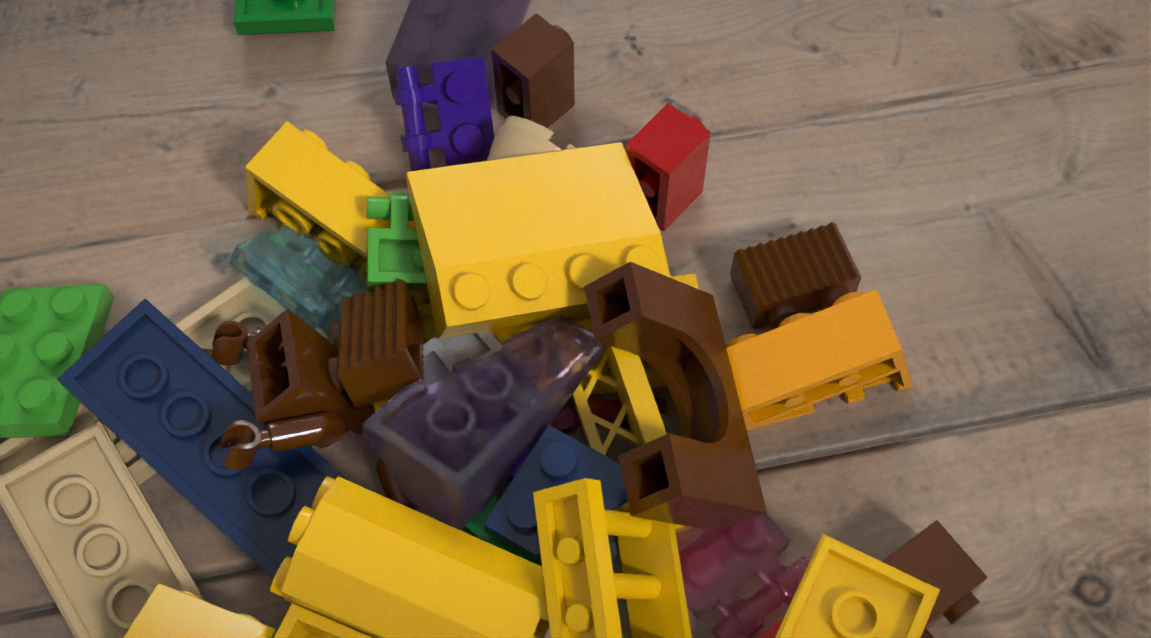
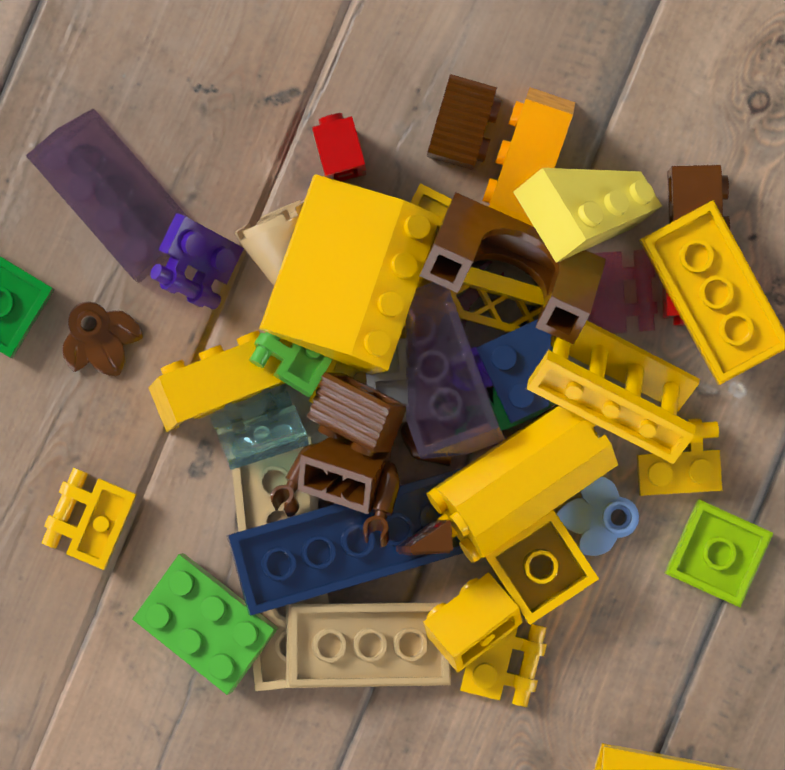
camera: 55 degrees left, 25 degrees up
(104, 198) = (100, 523): none -> yellow plate
(264, 511) = (431, 539): none -> reddish brown slope
(304, 95) = (103, 343): none -> reddish brown plate
(535, 72) = (209, 185): reddish brown brick -> none
(809, 441) = (584, 206): none -> light yellow wedge

